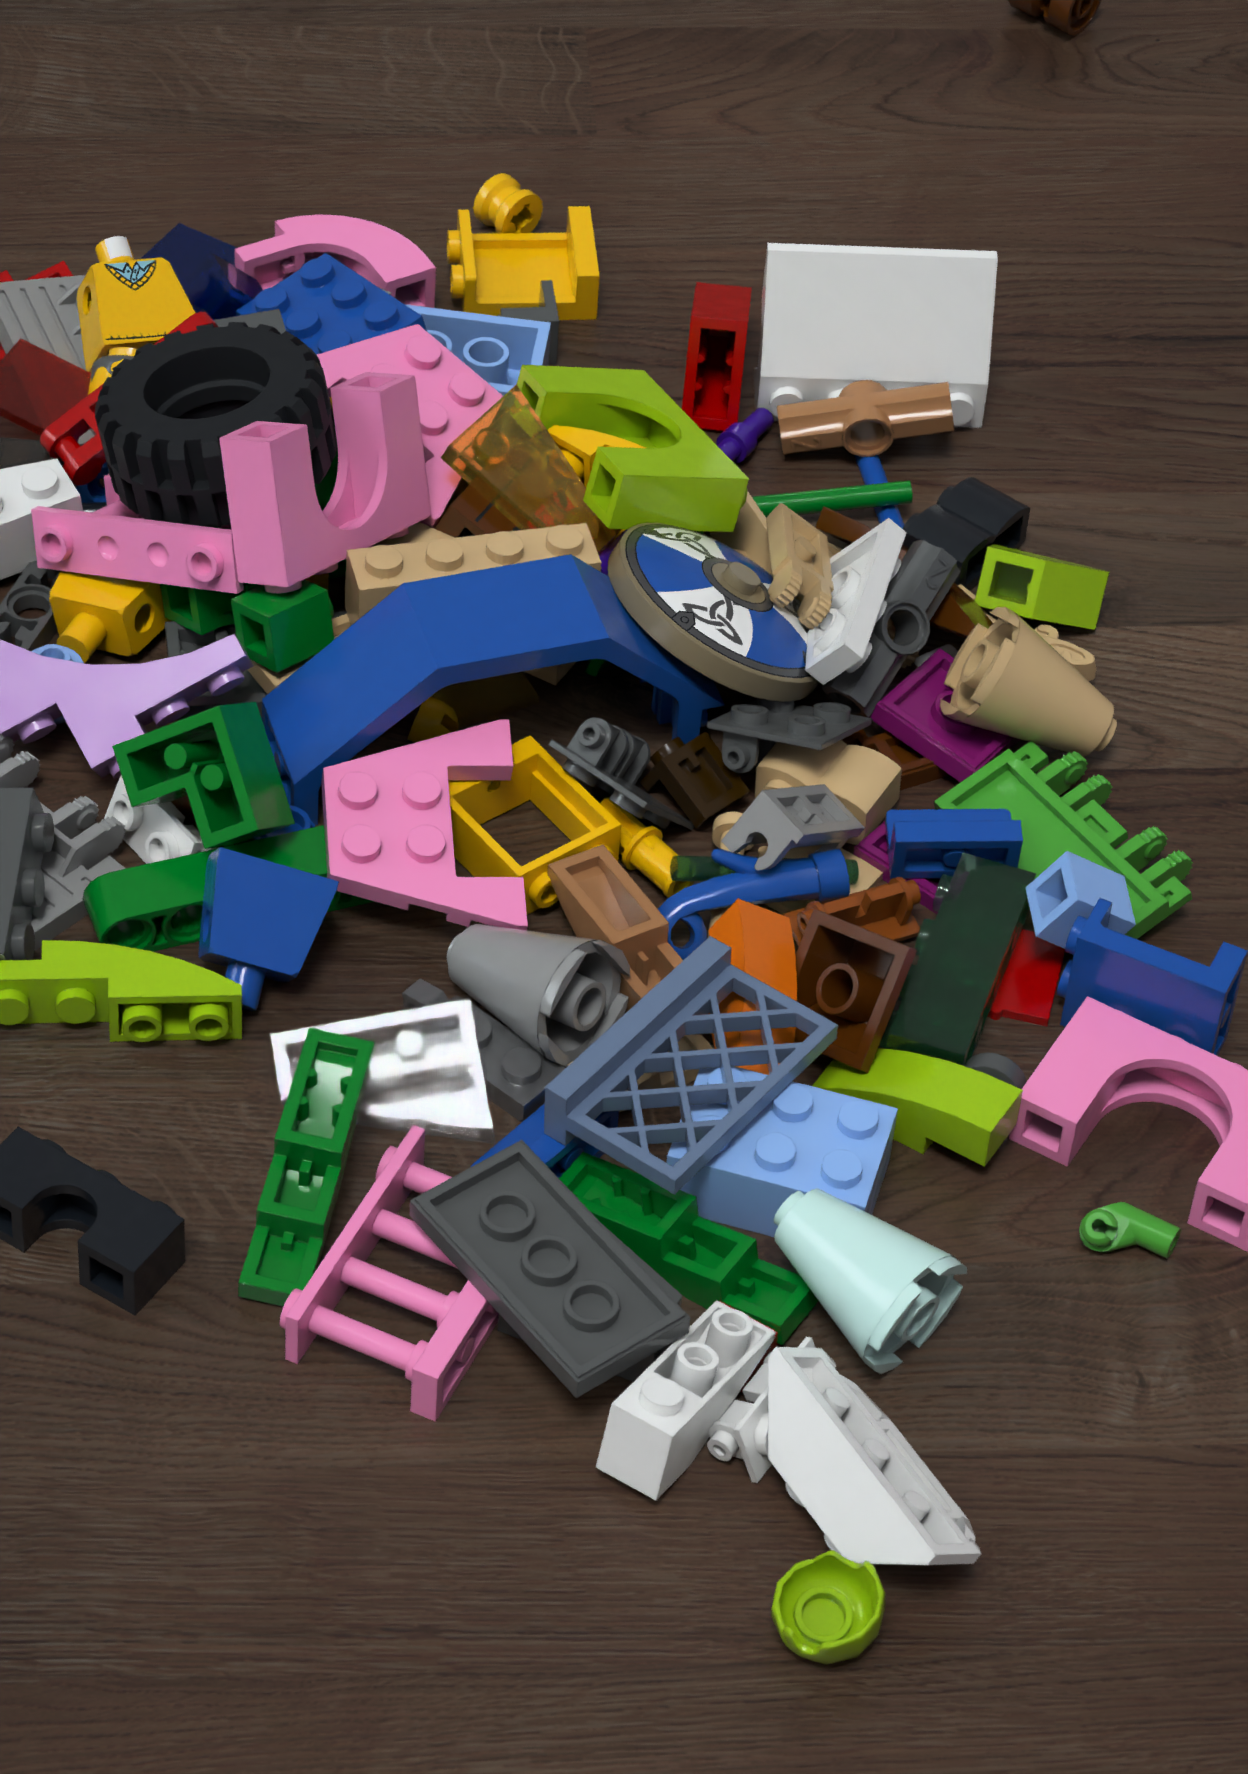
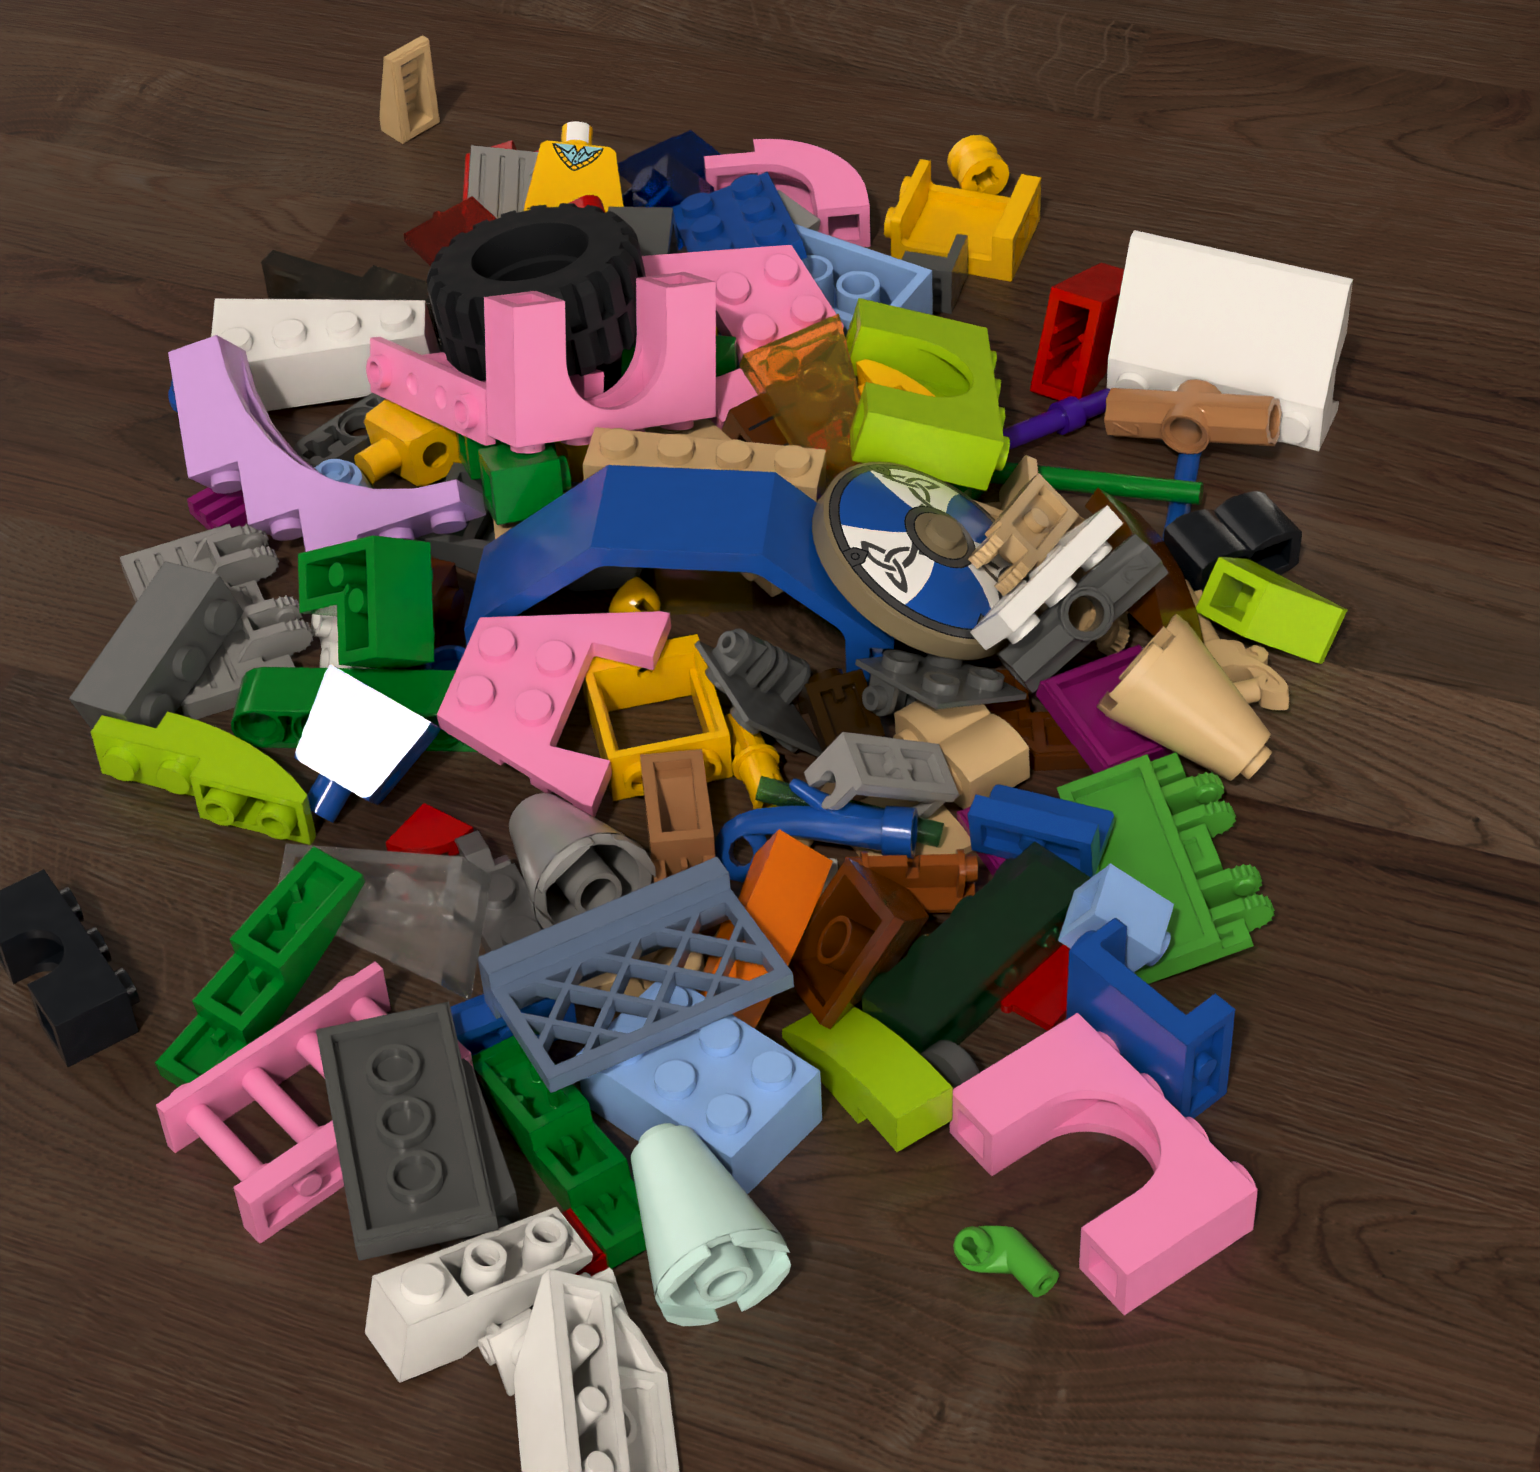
camera: 30 degrees right, 0 degrees up
(365, 994) = (428, 833): none -> red tile

